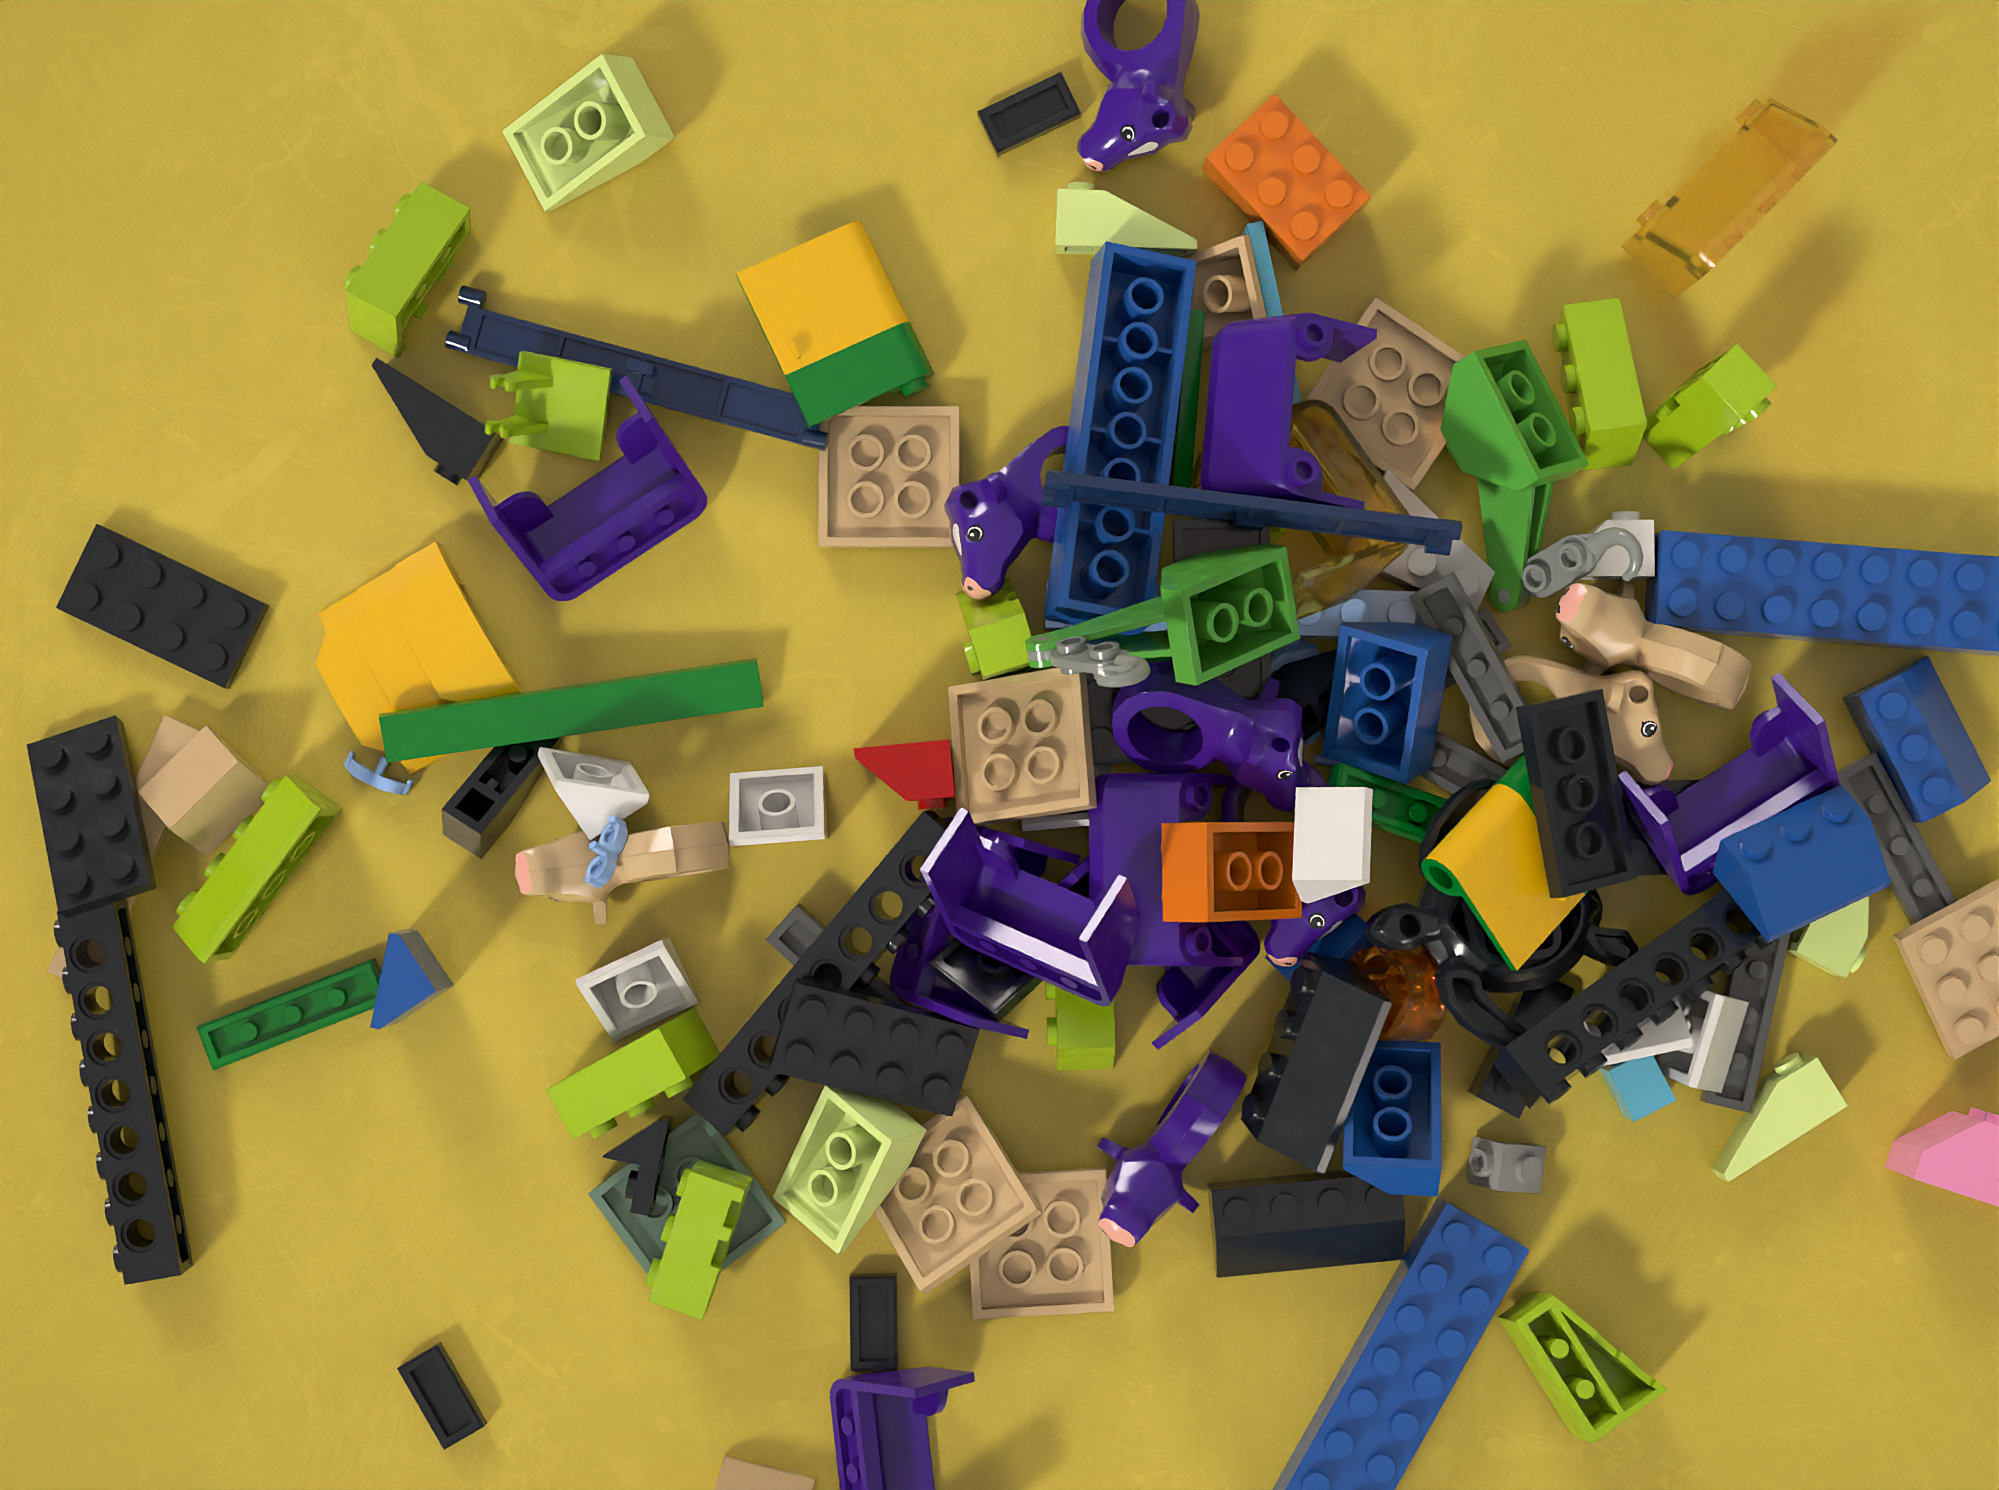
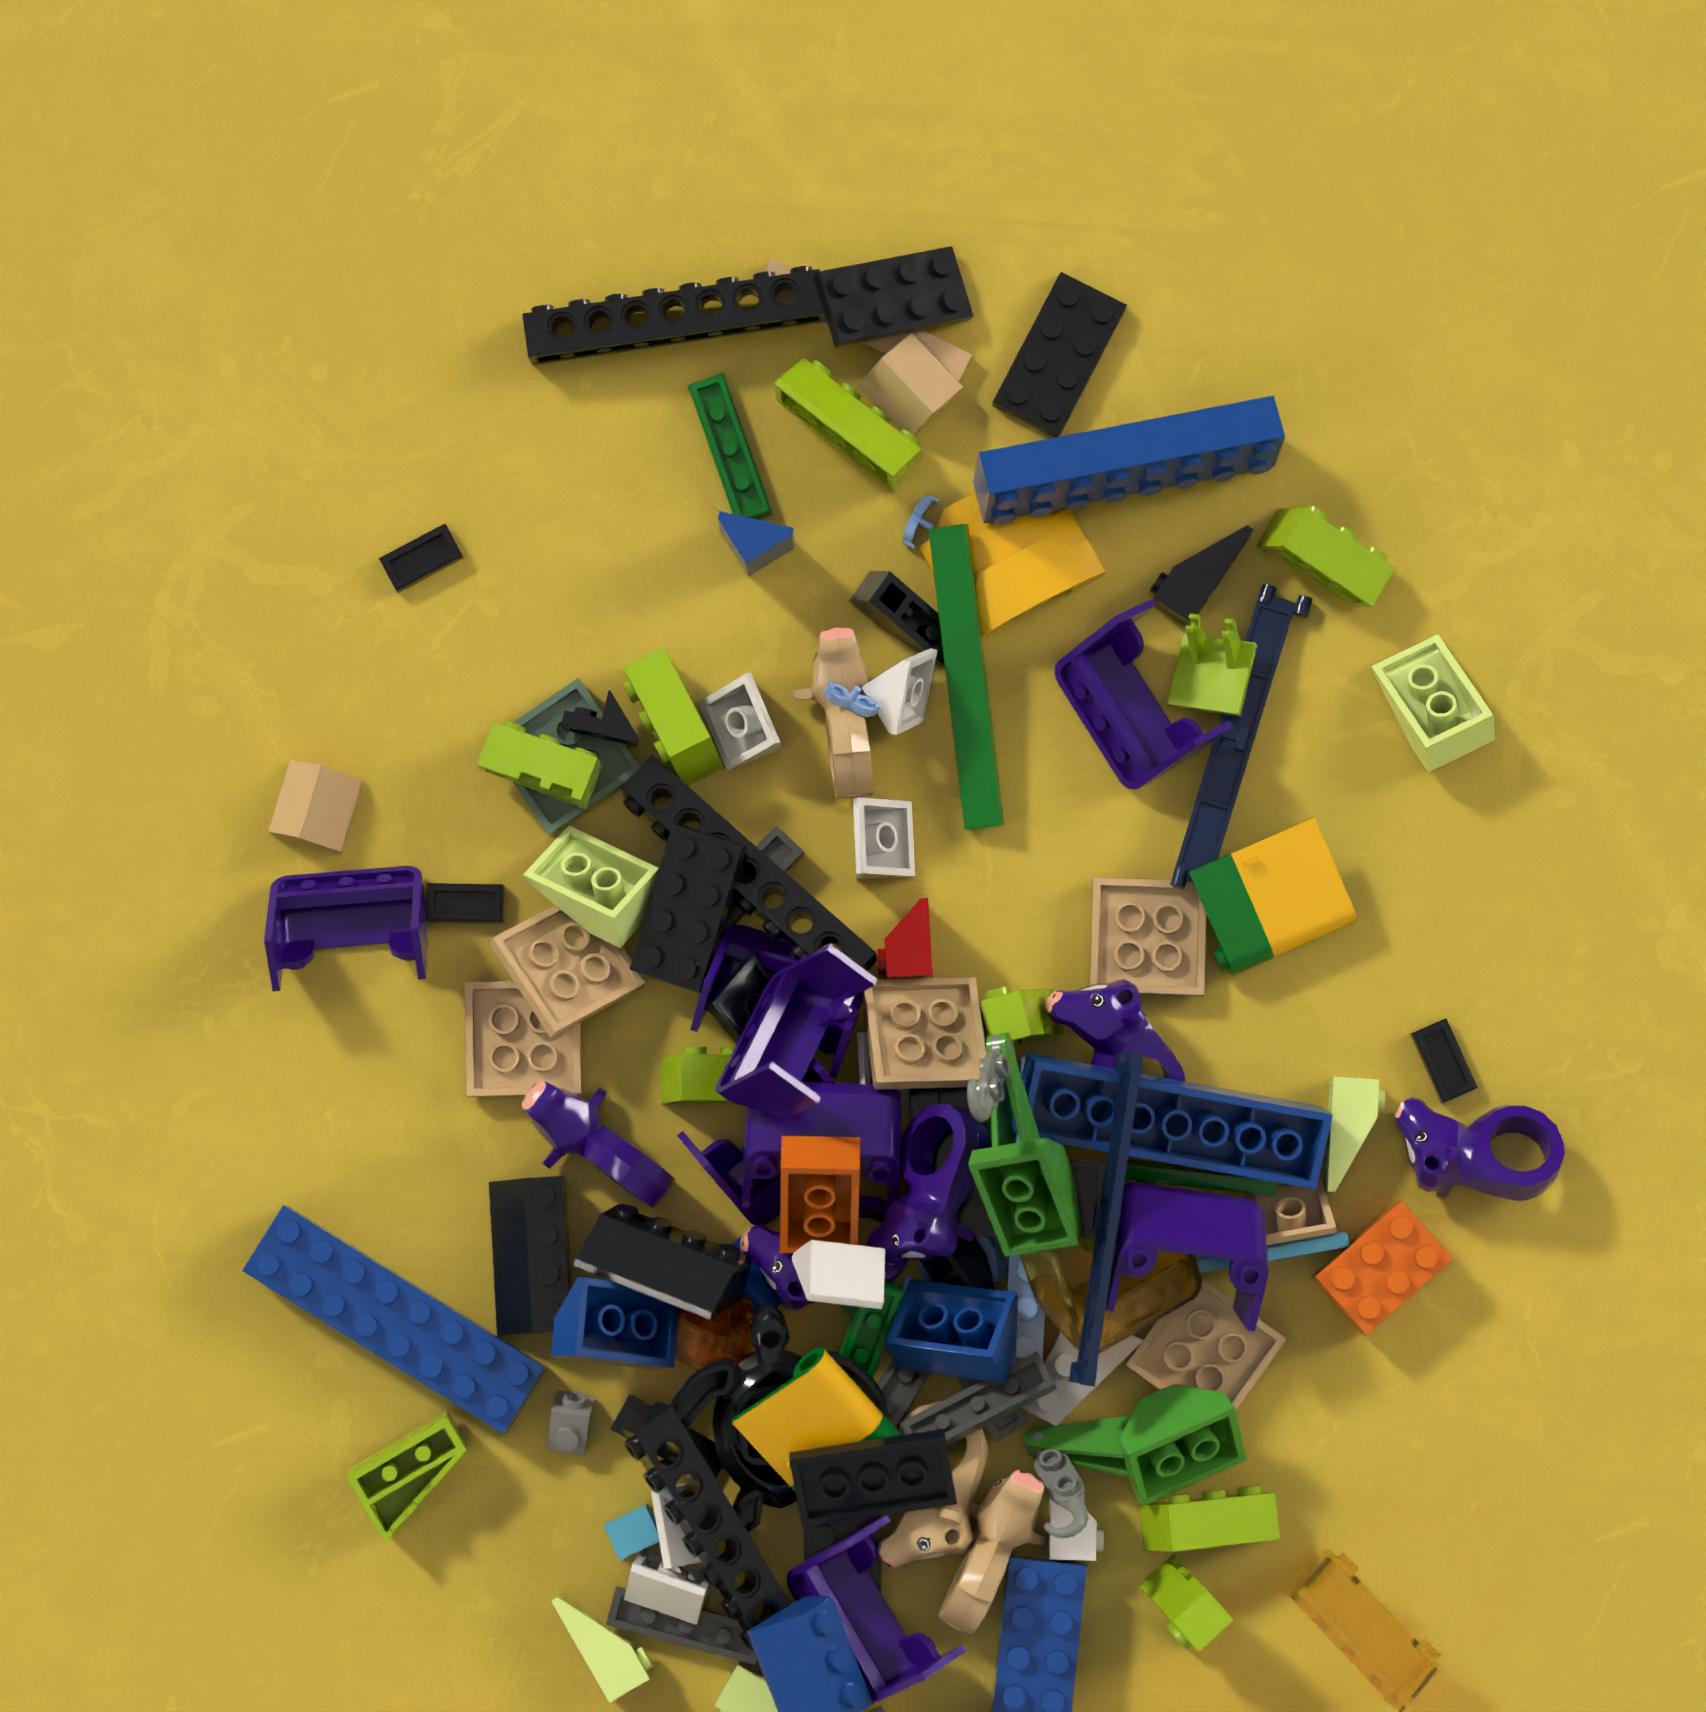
camera: 100 degrees right, 5 degrees down
(291, 514) = (1128, 460): none -> blue brick

